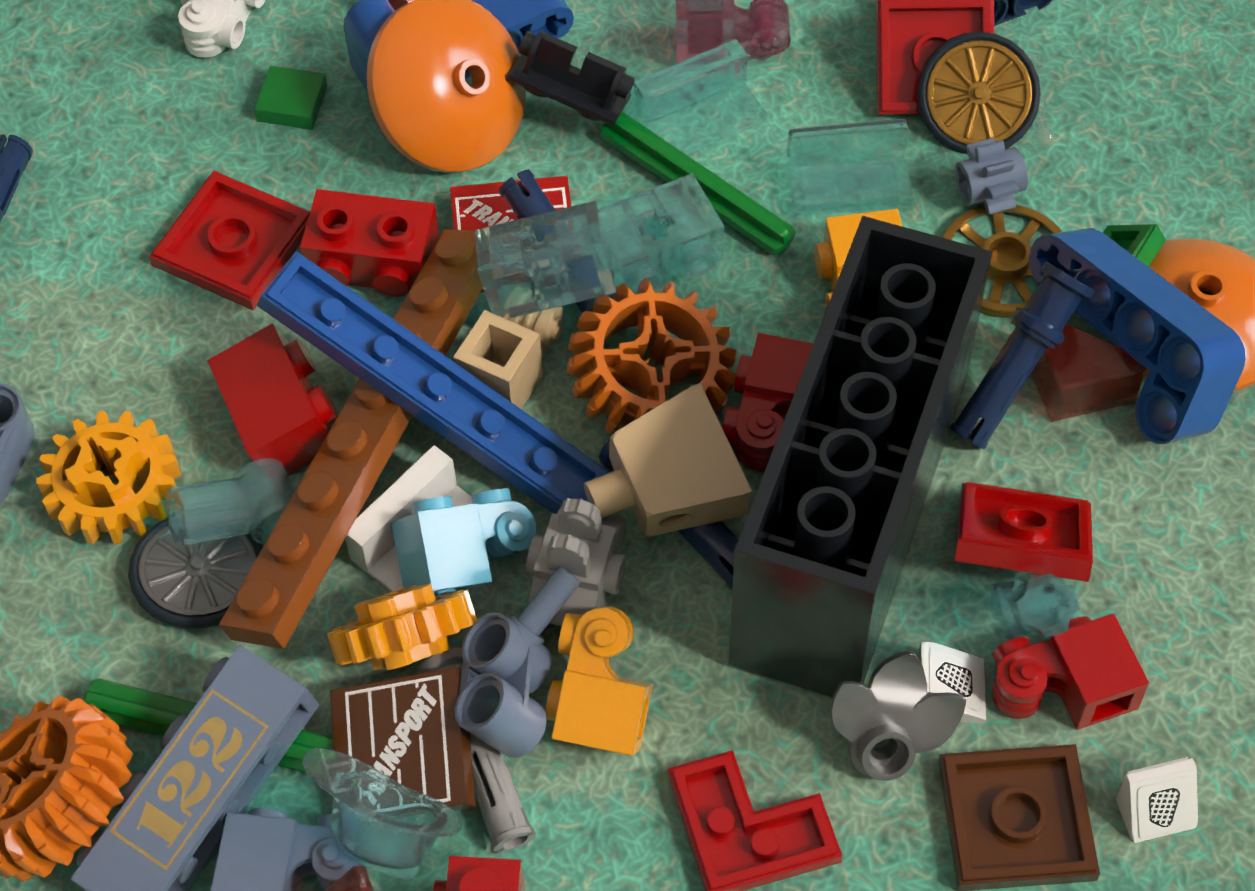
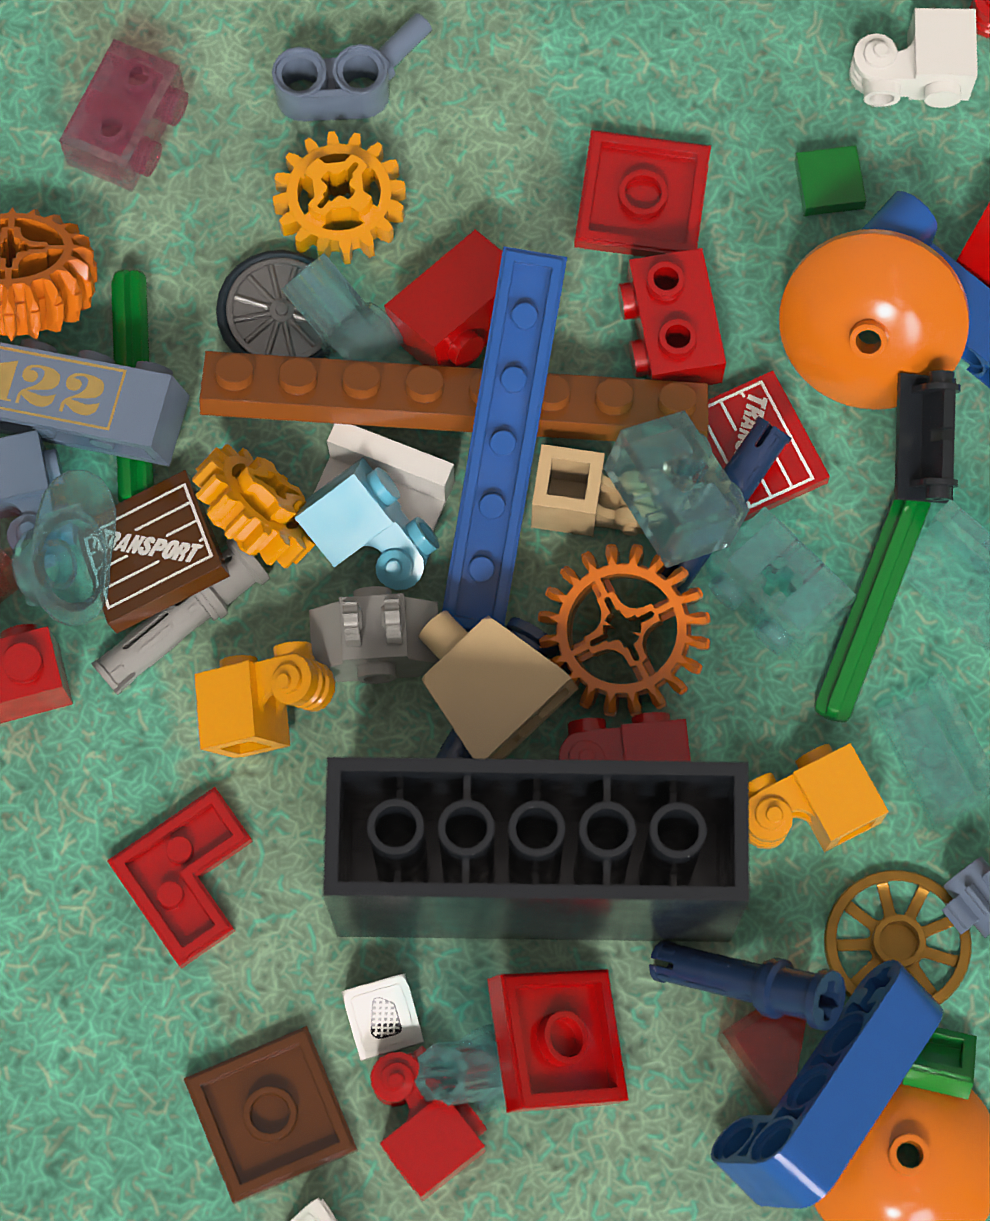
camera: 70 degrees right, 15 degrees up
(504, 665) = (239, 602): sand blue beam -> none
(893, 708) = (314, 970): flat silver plate -> none

